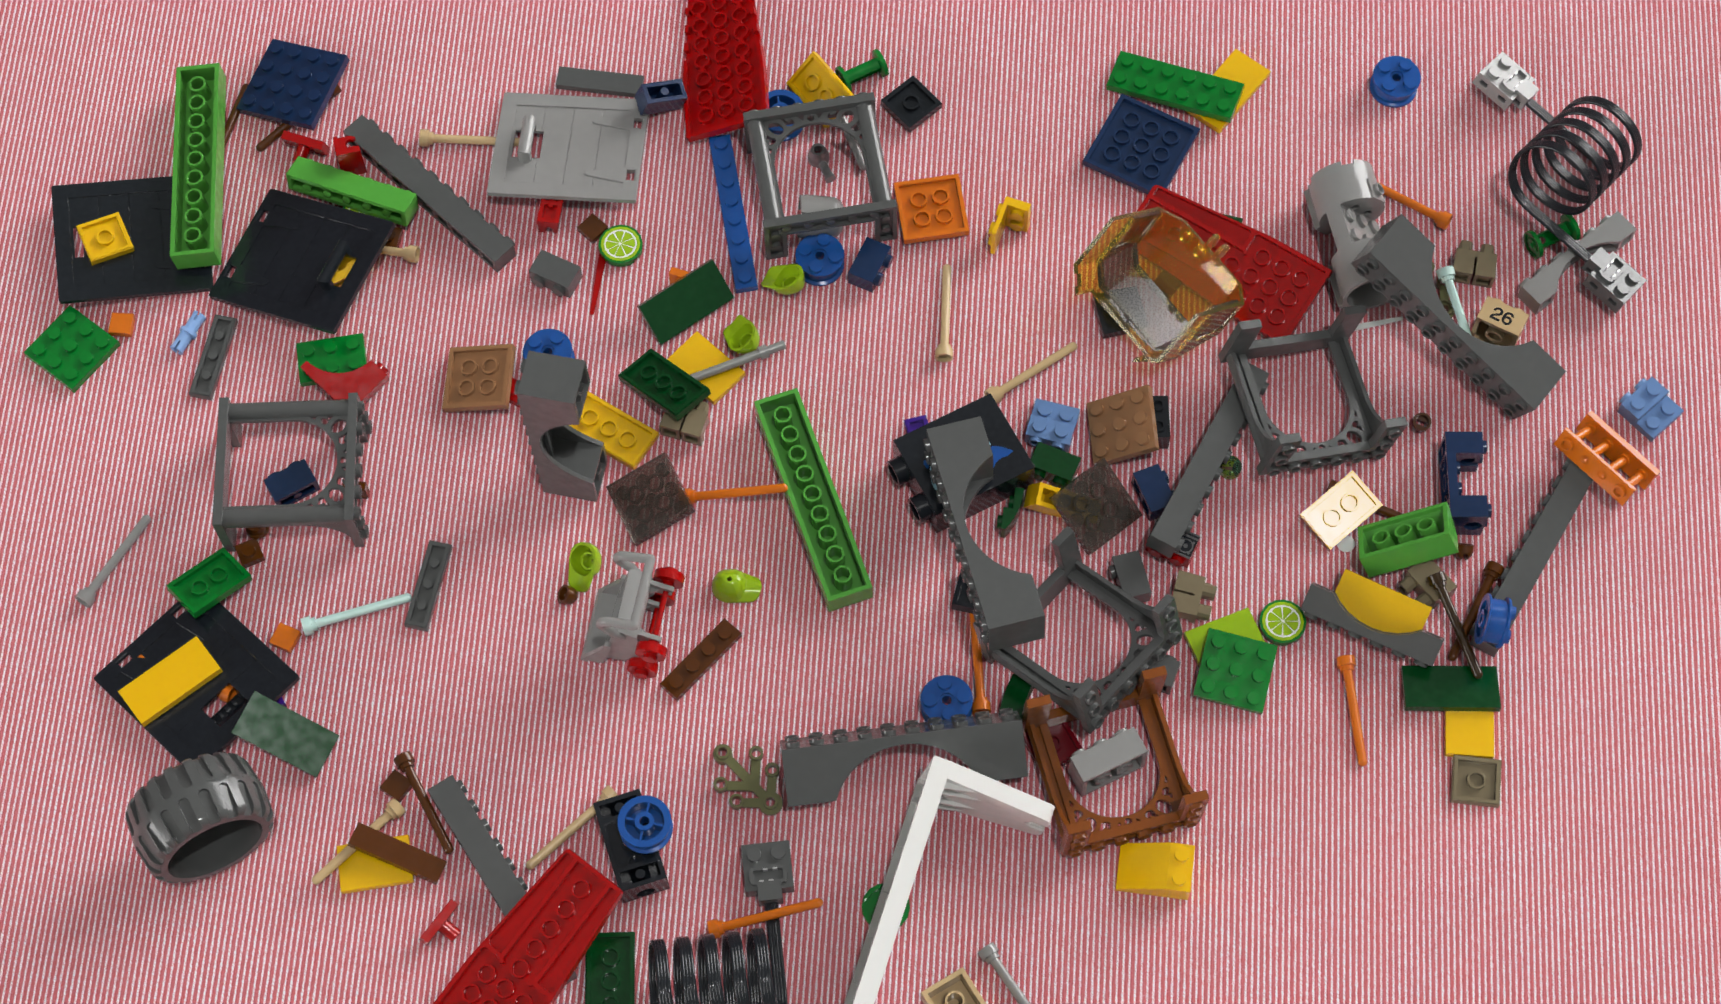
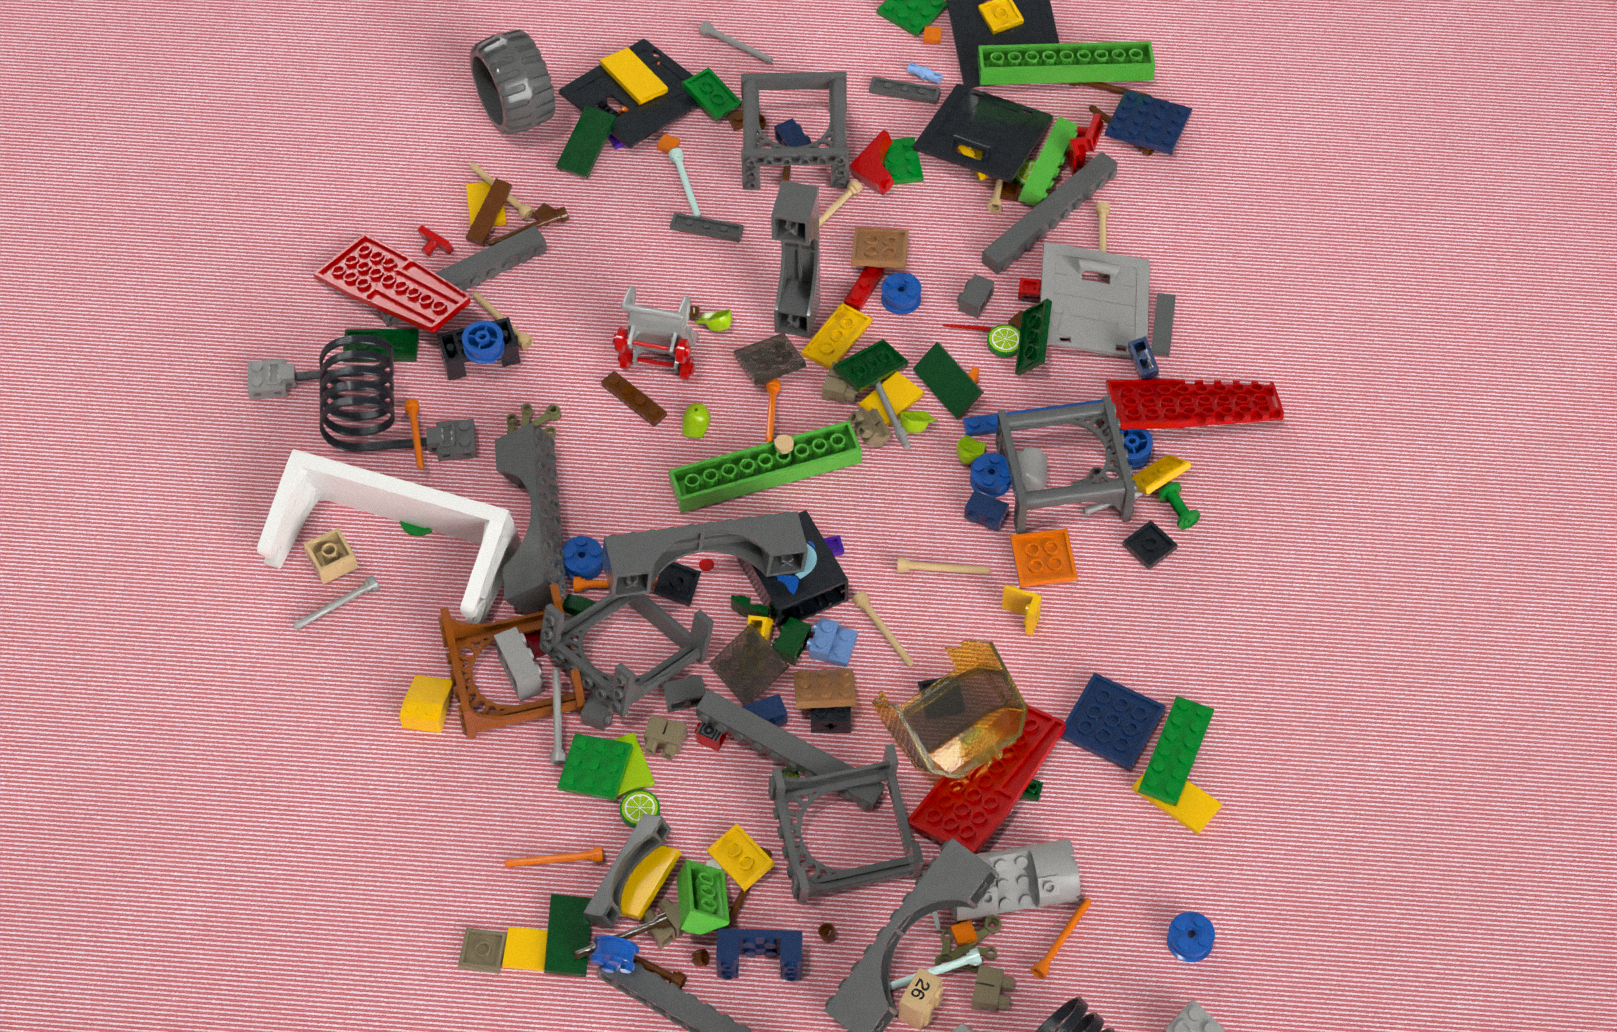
camera: 90 degrees right, 10 degrees down
(377, 413) = (853, 188): none -> tan piece
(630, 206) = (1033, 337): none -> dark green tile
(760, 385) = (870, 427): none -> dark tan hips
(792, 470) = (783, 444): none -> tan tile
(944, 566) = (706, 564): none -> red sticker
(1221, 713) = (558, 755): none -> light grey piece

